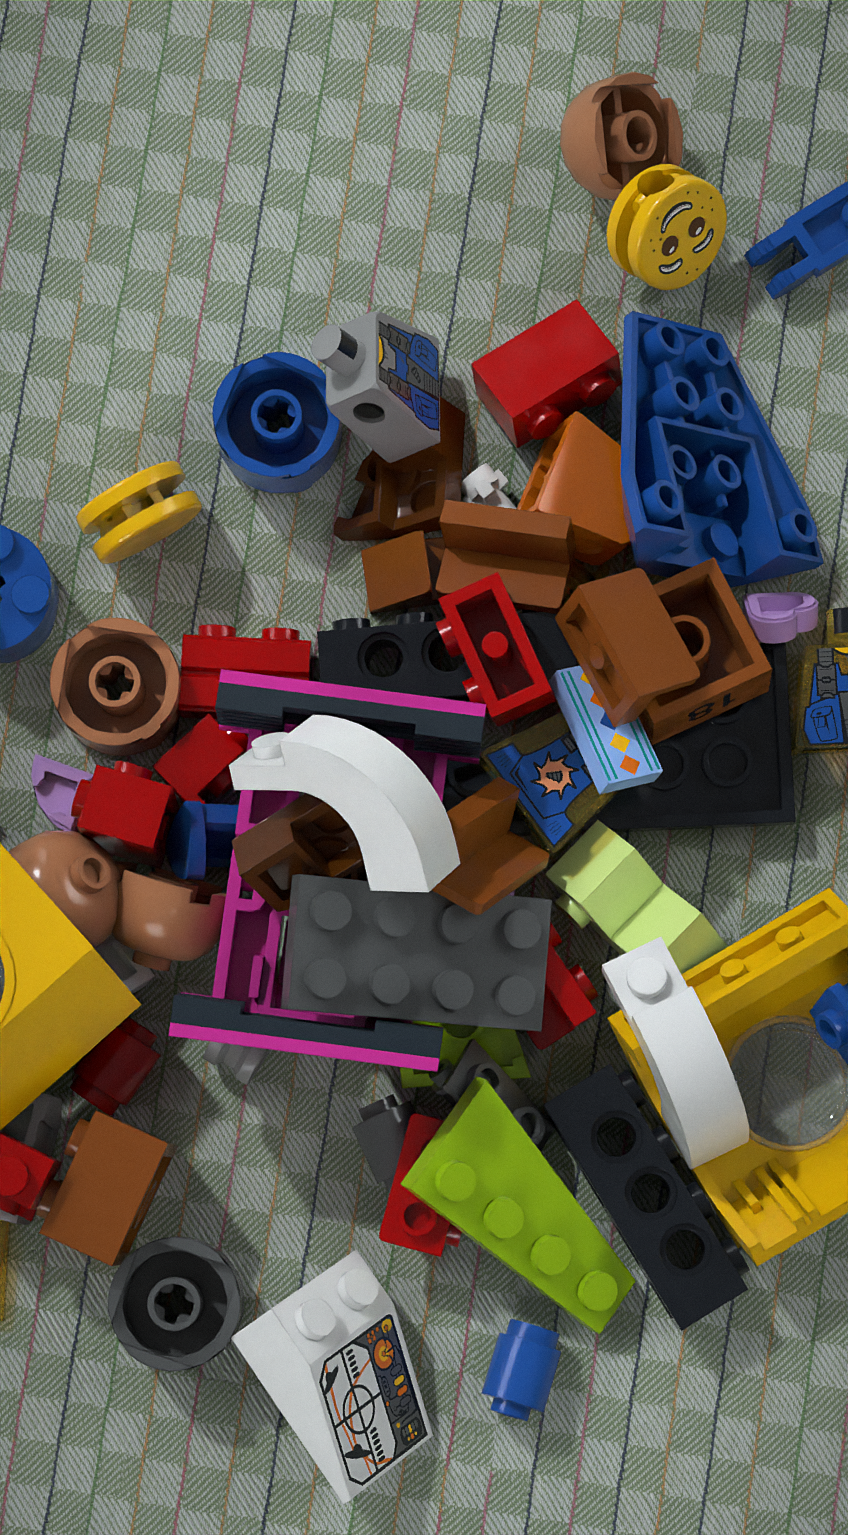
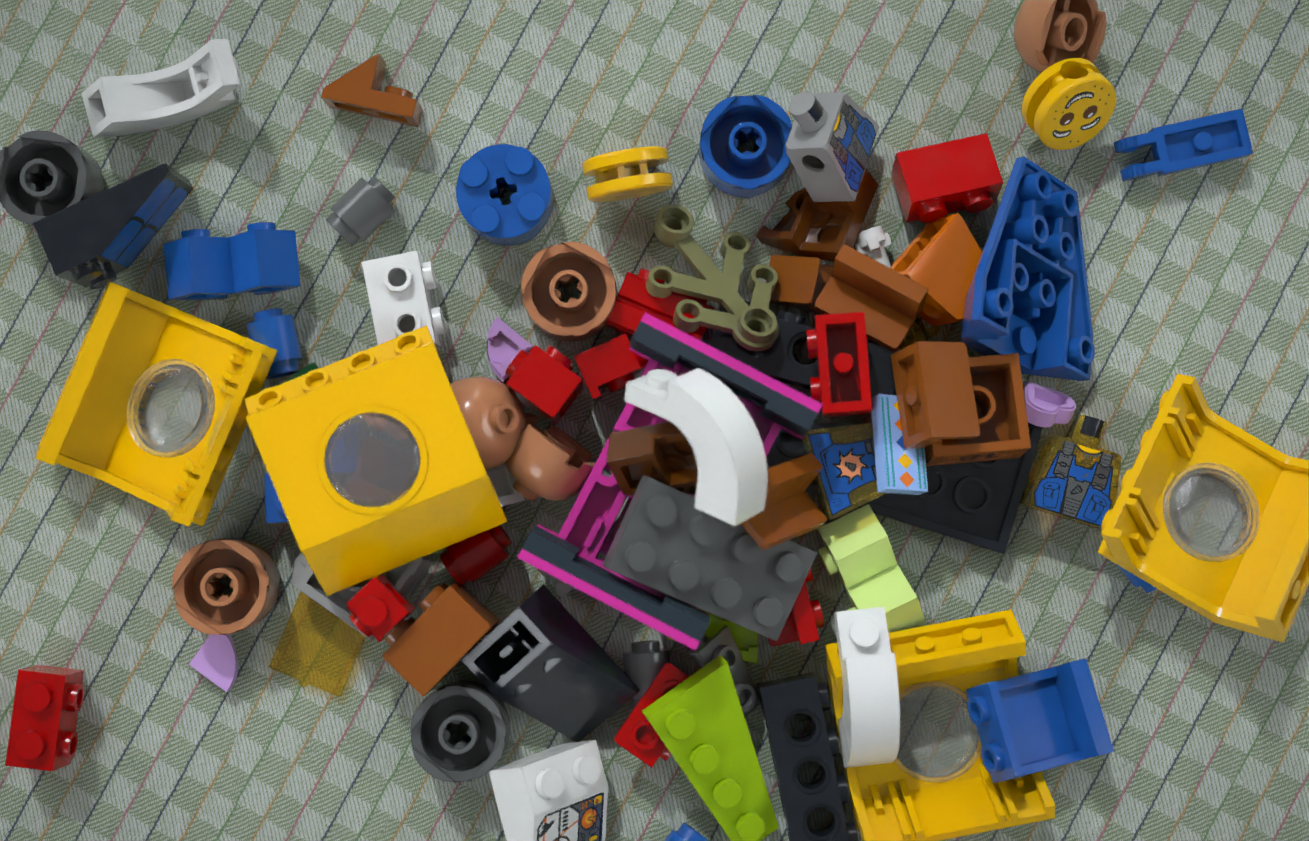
camera: 20 degrees right, 5 degrees up
(201, 838) = (590, 418): blue tile -> none
(265, 1177) = (551, 668): none -> black slope
(364, 645) = (673, 229): none -> olive plant

